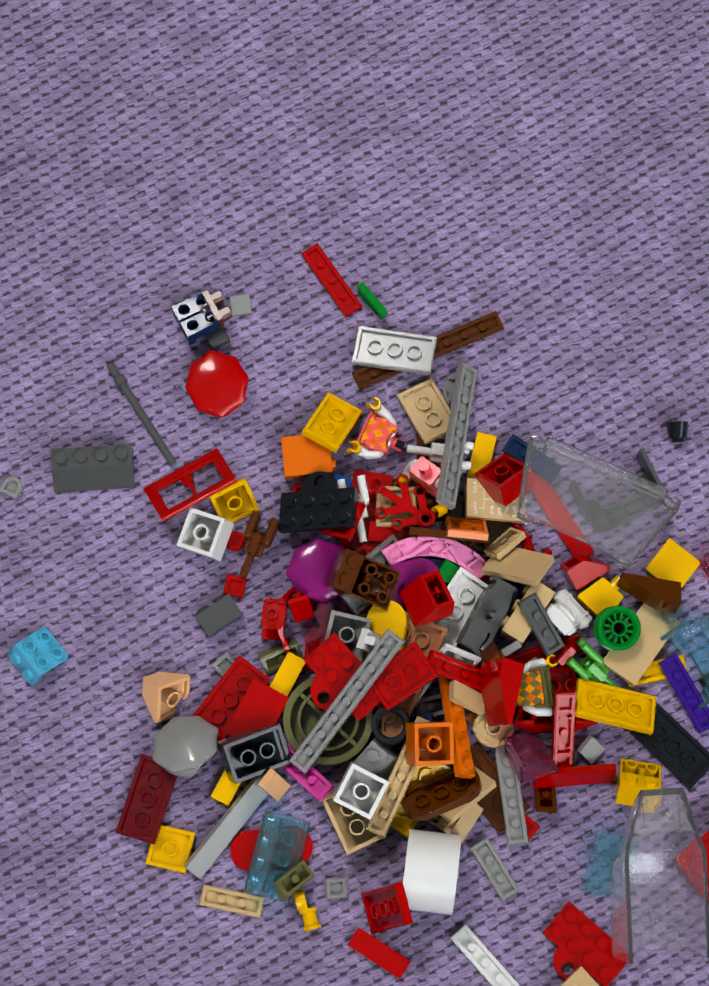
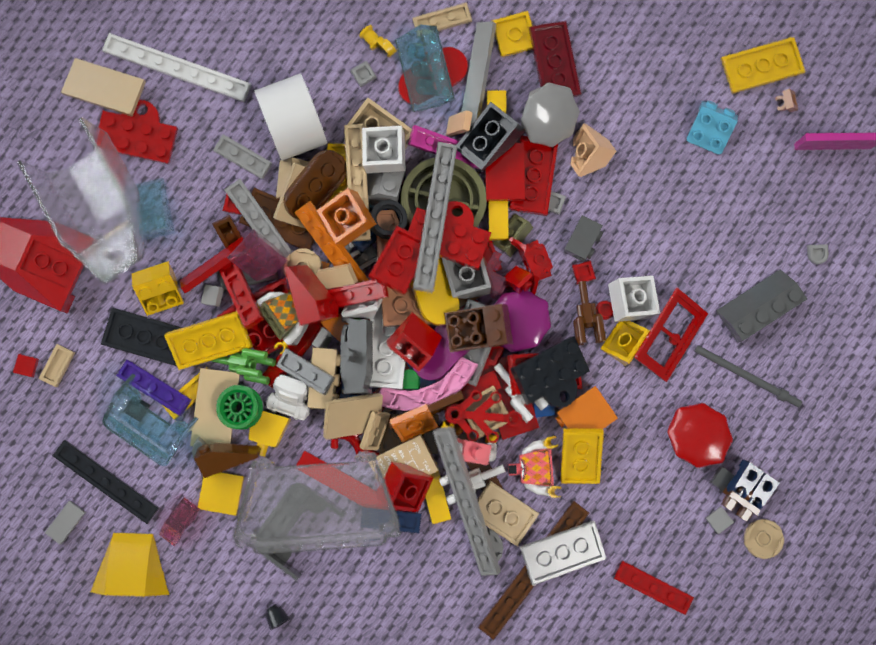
camera: 155 degrees right, 5 degrees up
(211, 269) = (763, 538): none -> tan tile
(293, 880) = (400, 56): olive slope -> none
(368, 640) = (445, 277): white tile -> none
(372, 301) = (610, 588): green tile -> none
(379, 953) = (301, 42): red tile -> none
(387, 908) = (311, 69): red tile -> none
(564, 653) = (272, 360): red tile -> none
(582, 570) = (295, 445): slope -> none

